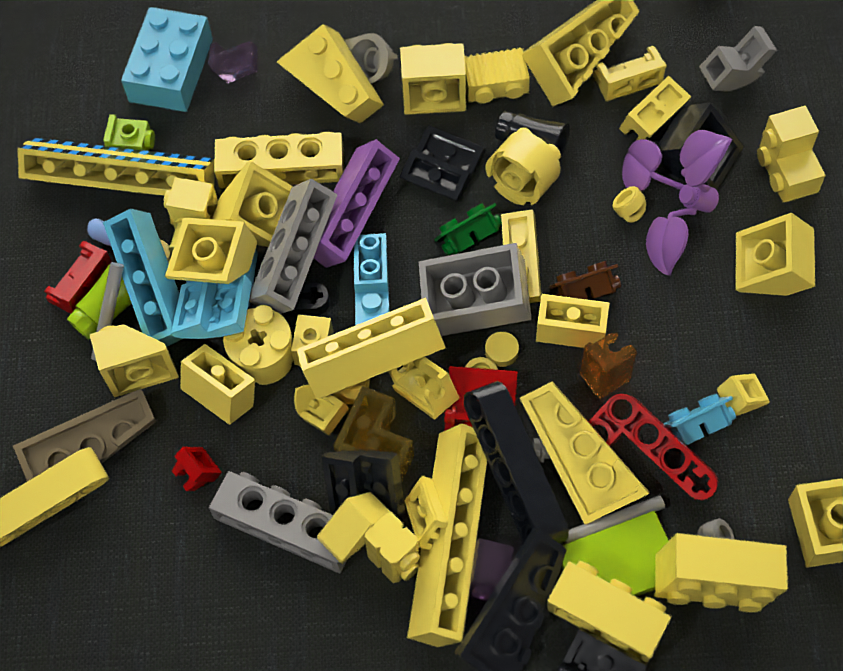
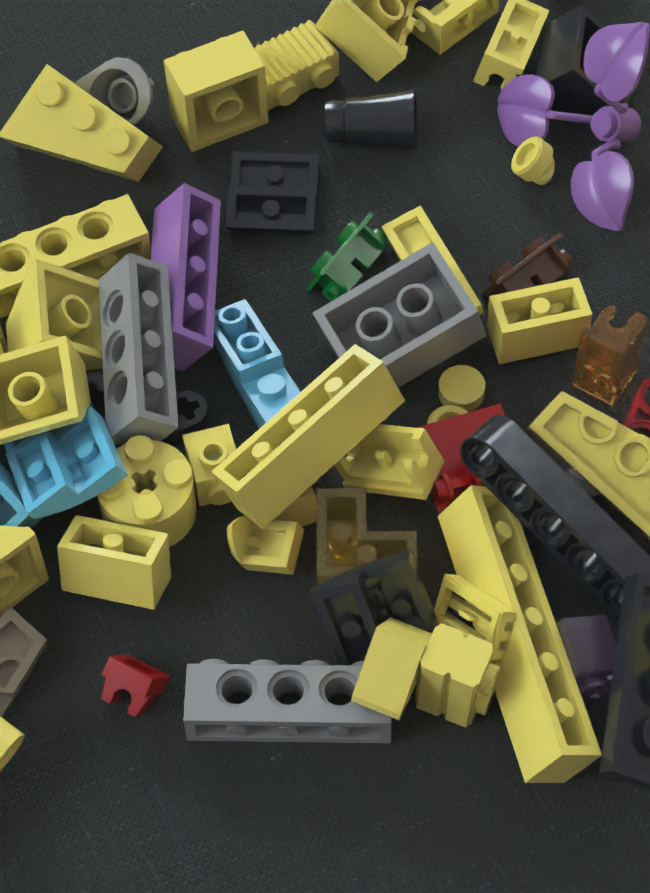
camera: 25 degrees left, 5 degrees down
(524, 167) = (385, 159): light yellow brick -> none

